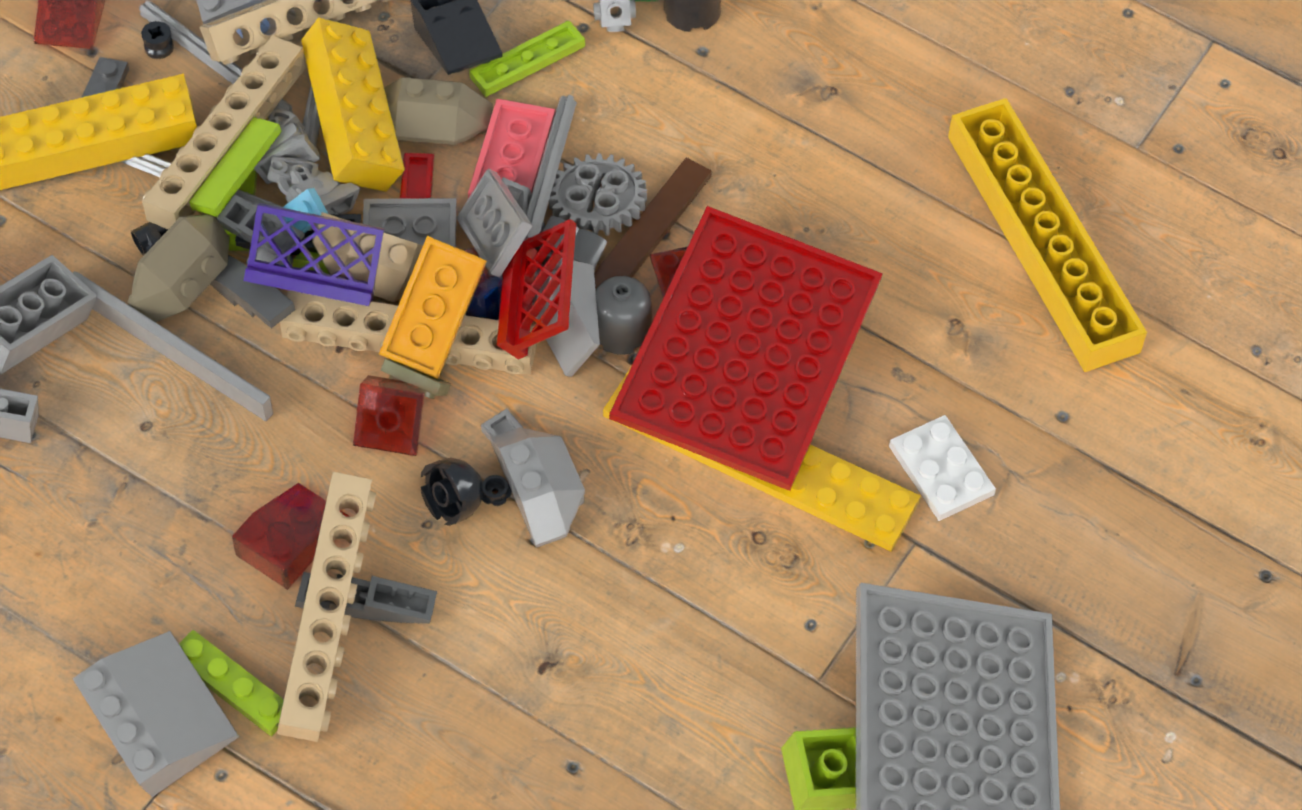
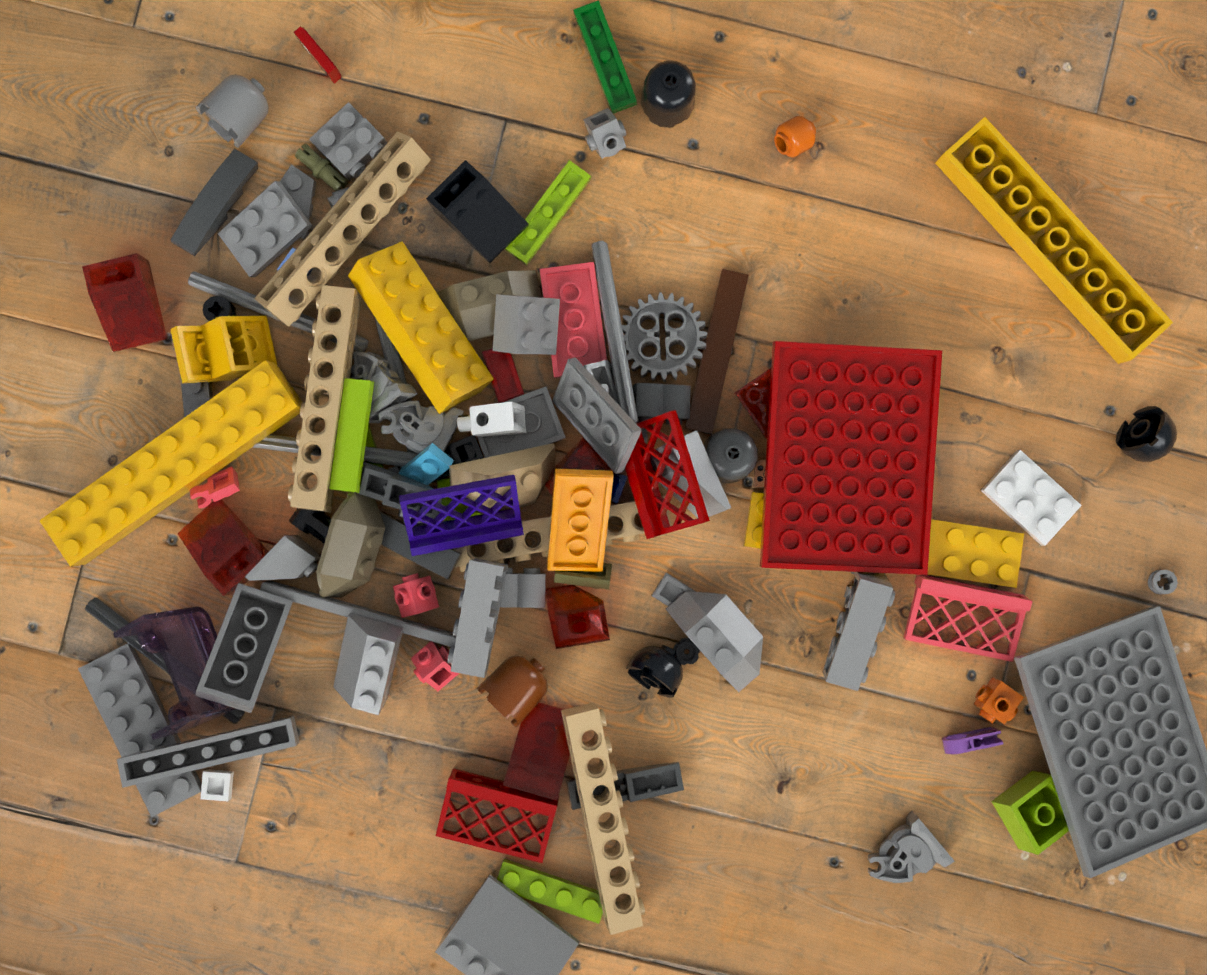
camera: 20 degrees left, 30 degrees up
(54, 230) = (222, 546): none -> clear red slope
(78, 183) = (218, 487): none -> coral plate
(105, 258) = (286, 560): none -> light grey slope
(137, 60) = (222, 348): none -> yellow bracket
(147, 379) = (367, 662): none -> light grey slope
(220, 416) = (433, 666): none -> coral brick
(222, 557) = (493, 790): none -> red fence
(227, 338) = (415, 595): none -> coral brick
(287, 356) = (478, 617): none -> light grey wedge
(290, 453) = (515, 687): none -> dark orange cylinder
(336, 369) = (524, 589): none -> light grey brick
(389, 199) = (504, 419): none -> white torso
(459, 130) = (526, 324): none -> light grey brick
(667, 774) = (908, 852): none -> light grey piece
(694, 519) = (858, 629): none -> light grey wedge
(782, 681) = (971, 740): none -> medium lavender piece
(808, 68) = (795, 136): none -> orange head
(827, 646) = (997, 701): none -> orange brick
(831, 529) = (978, 597): none -> coral fence
(1061, 606) = (1169, 587): none -> light grey bush
(1092, 442) = (1147, 435): none -> black cylinder

